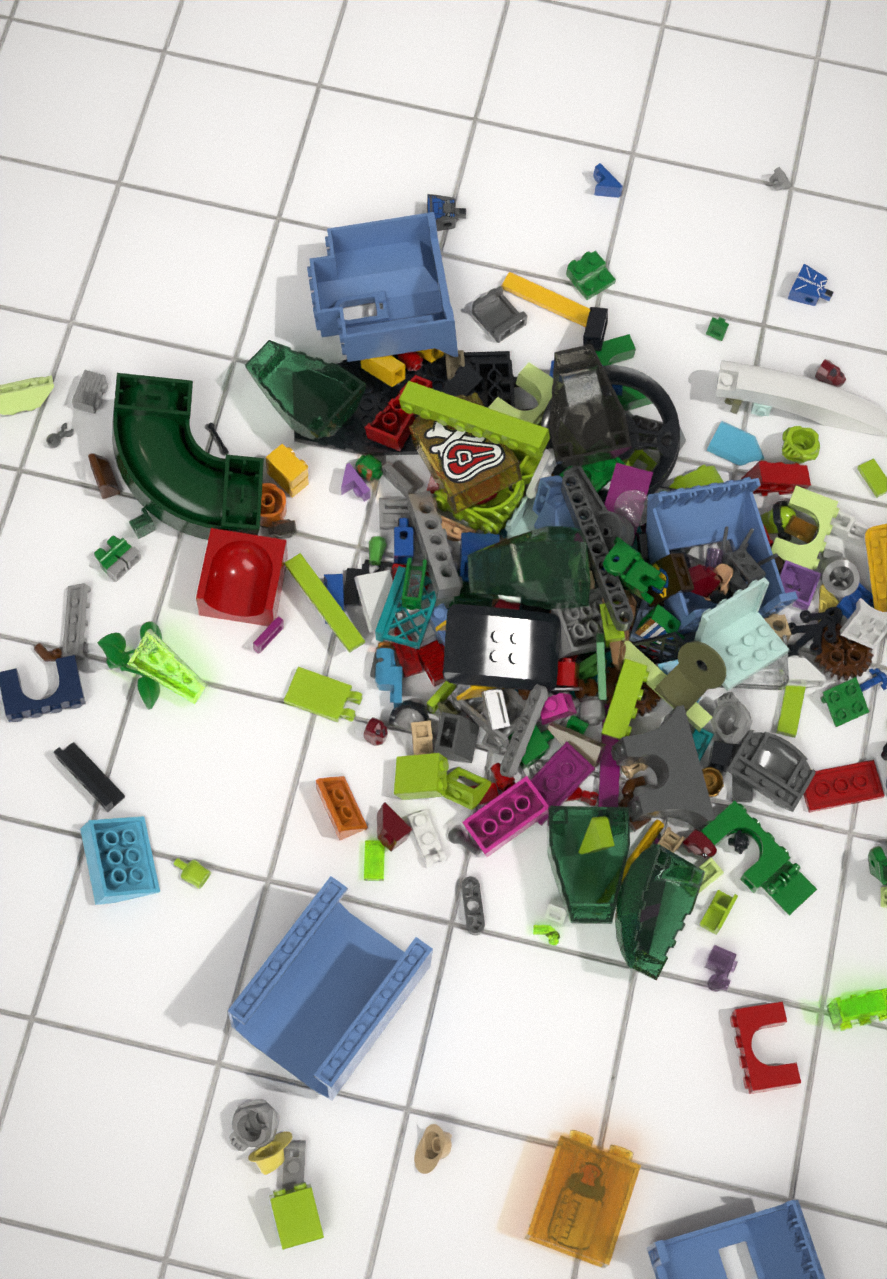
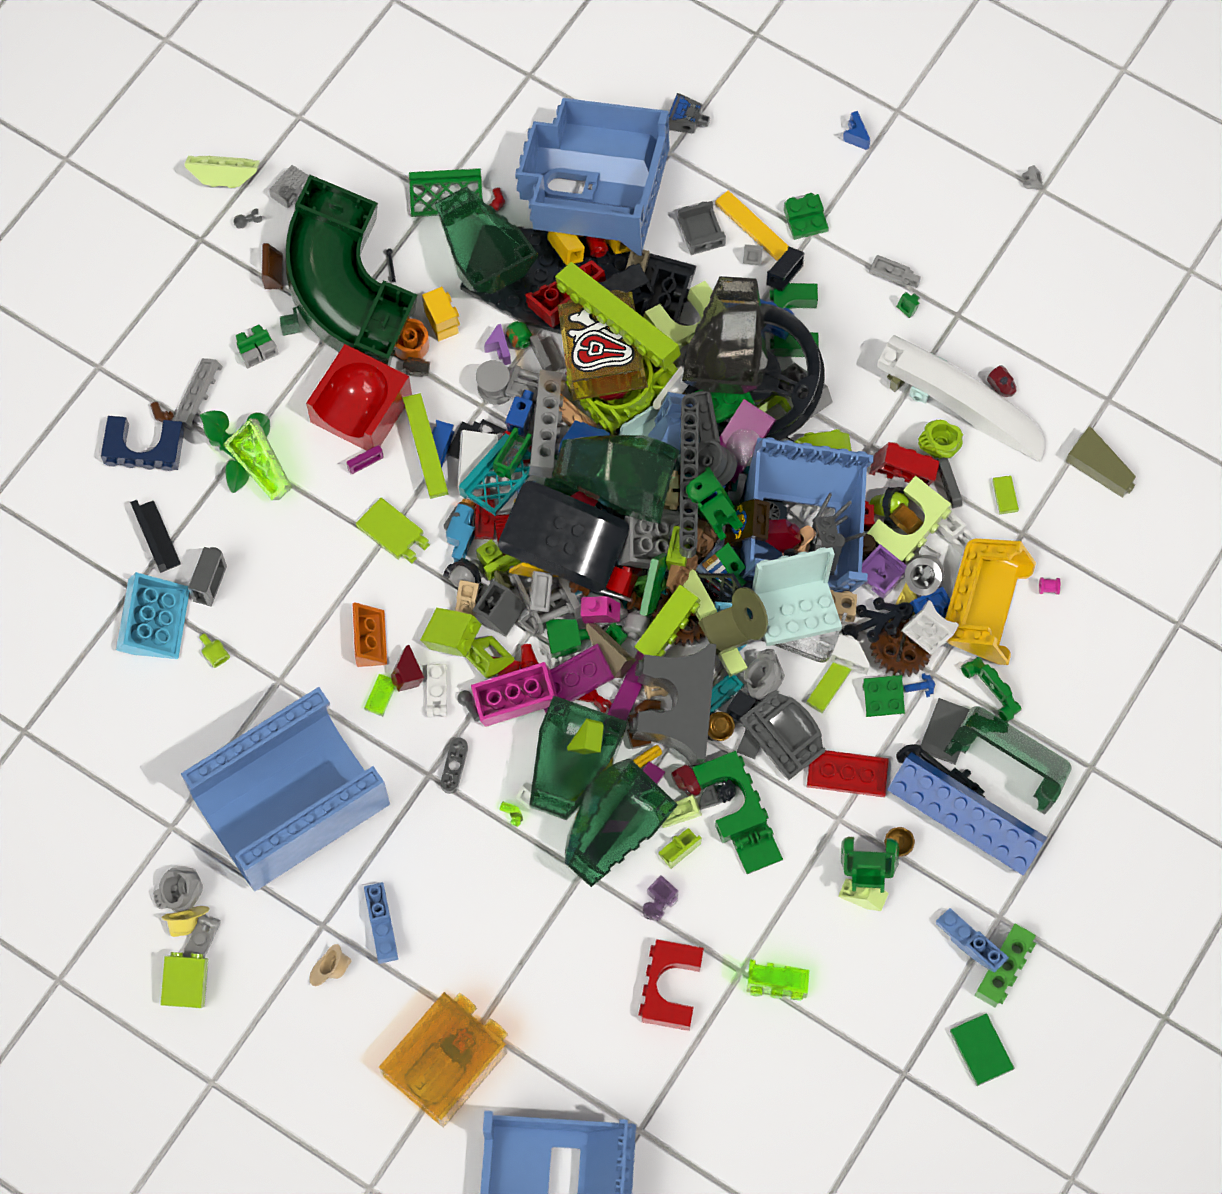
camera: 25 degrees right, 0 degrees up
(160, 800) = (207, 576): none -> dark grey window
(234, 340) = (441, 178): none -> green fence
(296, 342) = (499, 200): none -> red arm
(364, 520) = (493, 381): none -> light grey hat
(375, 732) = (427, 578): dark red rock -> none
(376, 550) = (495, 413): bright green cone -> none
(425, 688) = (488, 553): none -> lime brick
(465, 1087) = (381, 923): none -> medium blue slope
(523, 731) = (550, 631): light grey piece -> none
(557, 325) = (752, 254): none -> light grey tile
(671, 840) = (658, 768): tan piece -> none
(692, 302) = (894, 272): none -> light grey hinge
(714, 557) = (805, 518): clear purple piece -> none
(724, 854) = (709, 798): none -> dark grey tile
(735, 445) = (880, 421): medium azure tile -> none
(809, 287) = (1017, 291): blue torso -> none
(822, 482) = (949, 483): none -> dark grey beam

